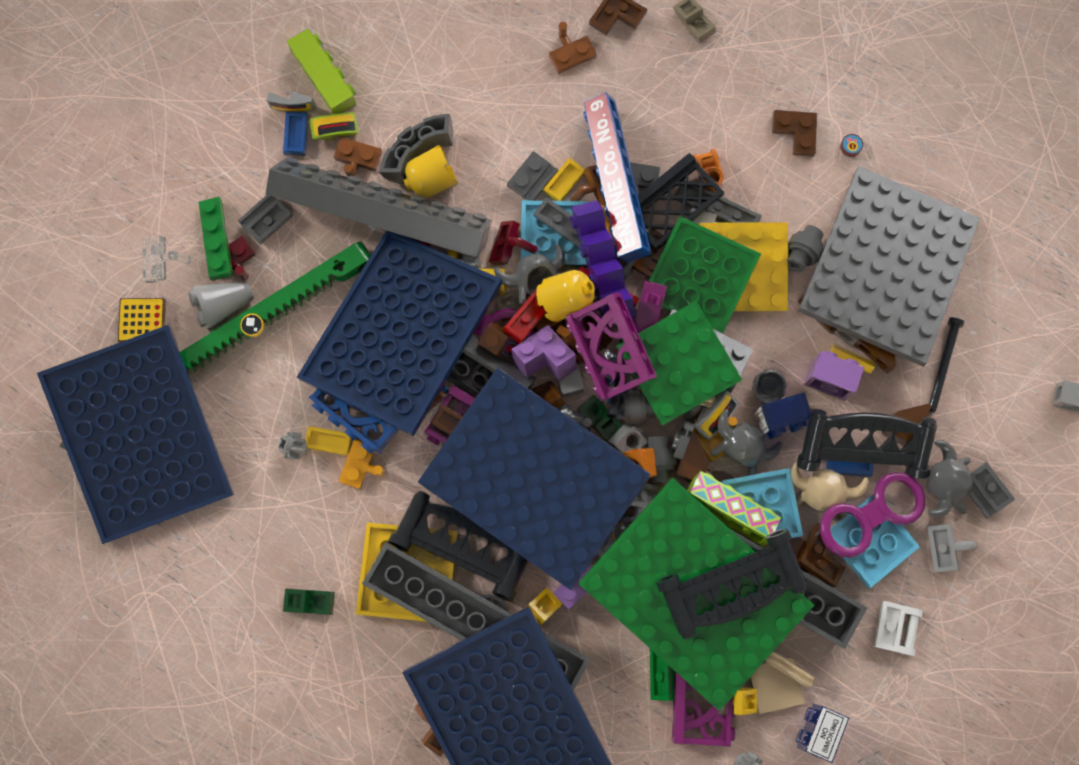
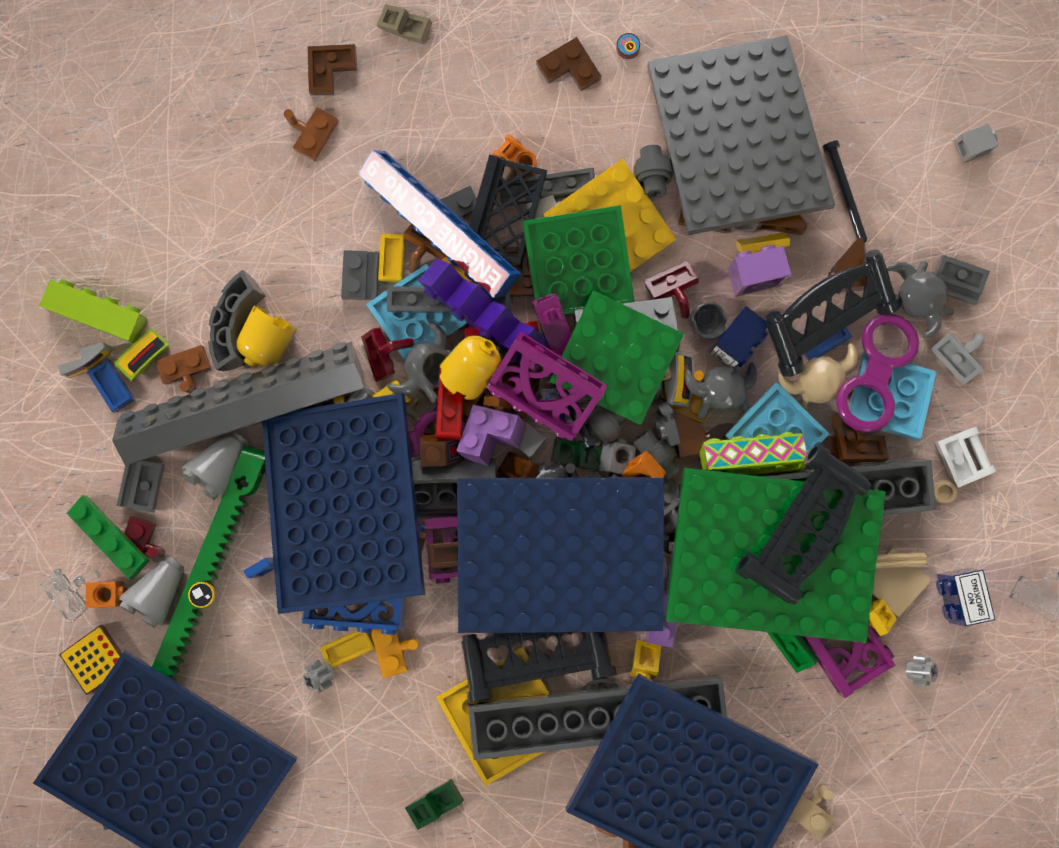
camera: 30 degrees left, 5 degrees up
(177, 272) = (95, 594): none -> orange brick
(307, 336) = (260, 568): none -> blue tile
(328, 240) = (215, 465): none -> light grey cone
(762, 341) = (673, 283): none -> plate
(862, 643) = (944, 492): none -> tan tile

